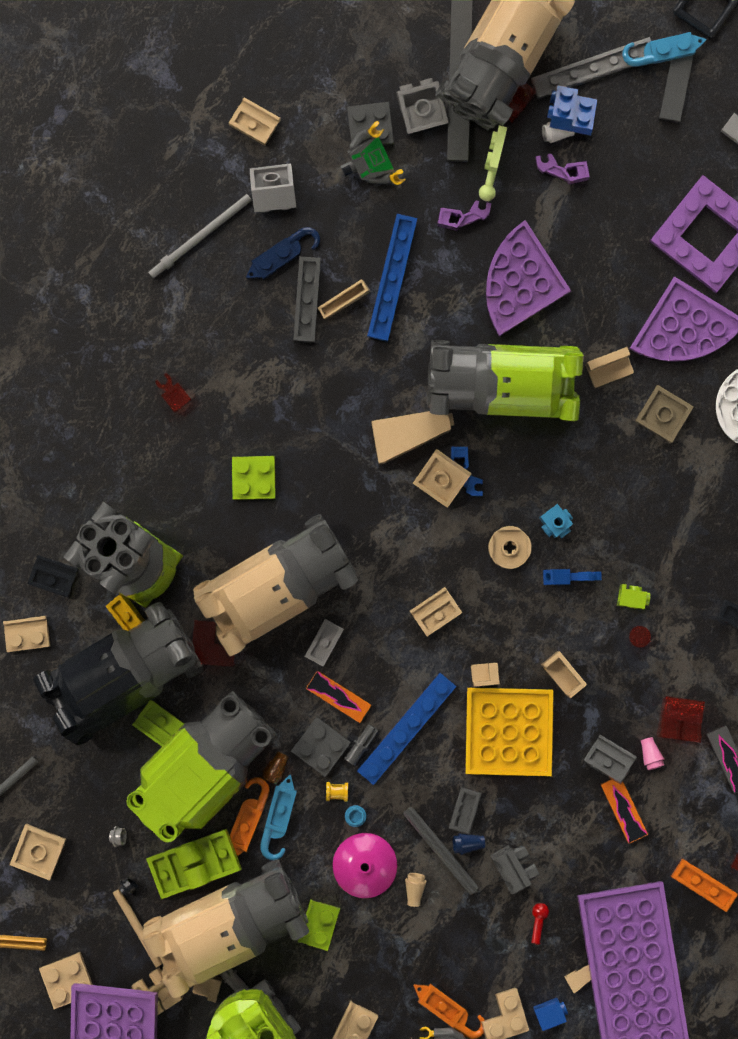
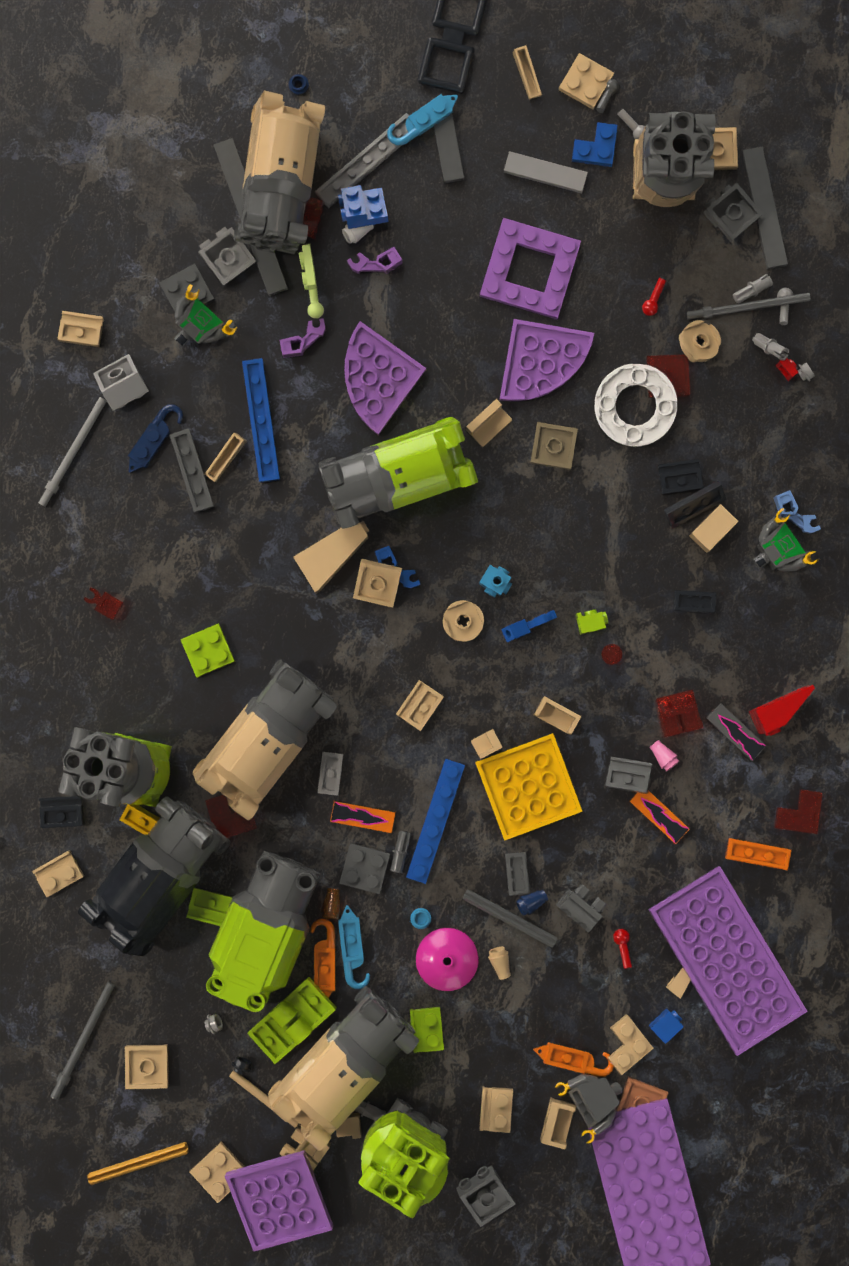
camera: 20 degrees left, 0 degrees up
(337, 791) = (395, 903): yellow bush -> none

